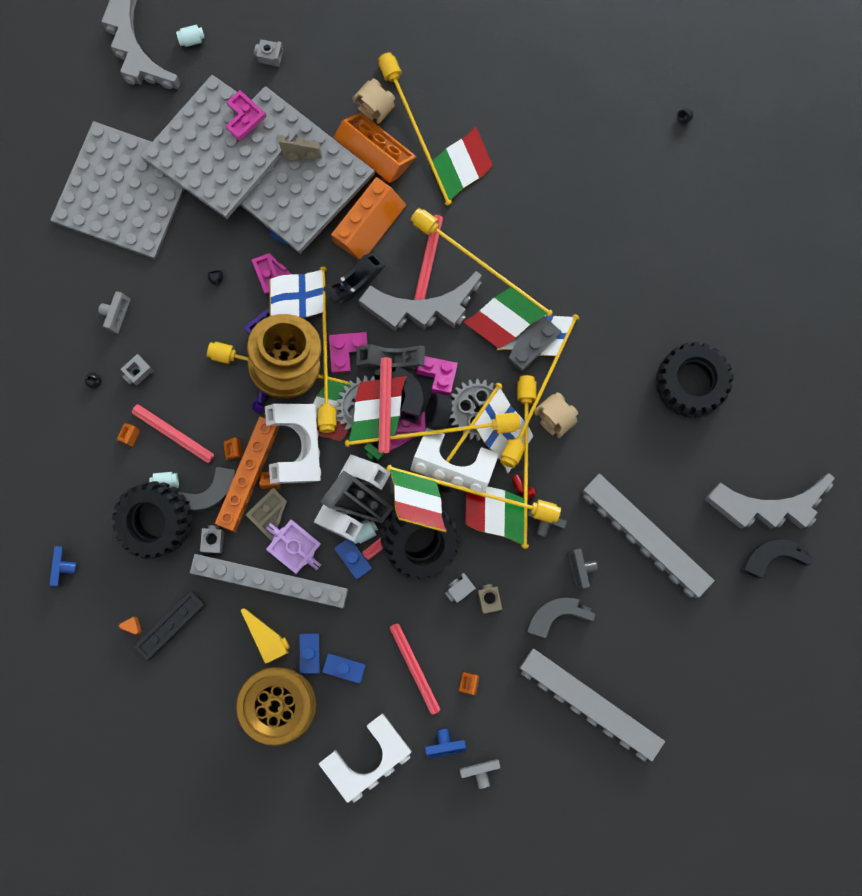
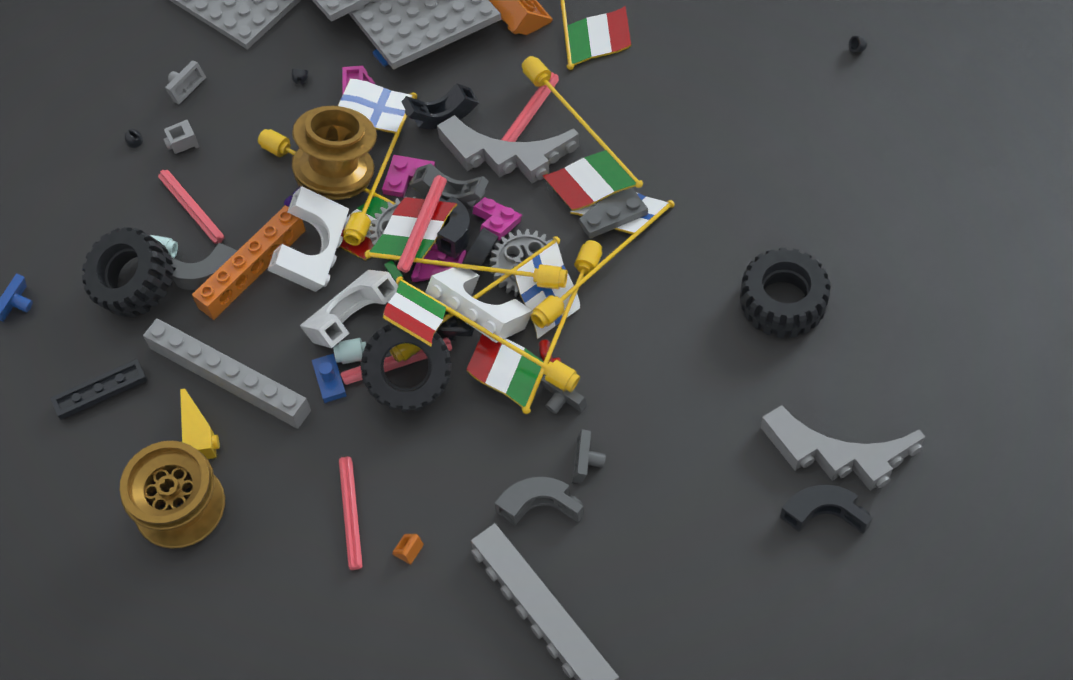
camera: 25 degrees right, 20 degrees down
(128, 434) = (146, 196): orange slope -> none
(131, 625) = (59, 376): orange slope -> none
(216, 548) = (186, 323): light grey brick -> none
(233, 449) = (246, 233): orange slope -> none
(265, 482) = (270, 279): orange slope -> none
(268, 511) = (255, 306): dark tan wing -> none
(293, 546) = (267, 345): lavender plate -> none
(309, 653) = (238, 462): blue tile -> none
(344, 668) = (270, 489): blue tile -> none
(351, 783) = (285, 597): white arch -> none
(355, 498) = (352, 306): dark grey wedge -> none
(368, 219) = (479, 58): orange slope -> none
(445, 746) = (350, 607): blue tile -> none
(459, 589) = (435, 440): light grey brick -> none
(480, 771) = (380, 647): light grey tile -> none
(485, 607) = (468, 469): dark tan brick -> none
(556, 415) = (612, 287): tan brick -> none
(647, 537) = (677, 445): light grey brick -> none

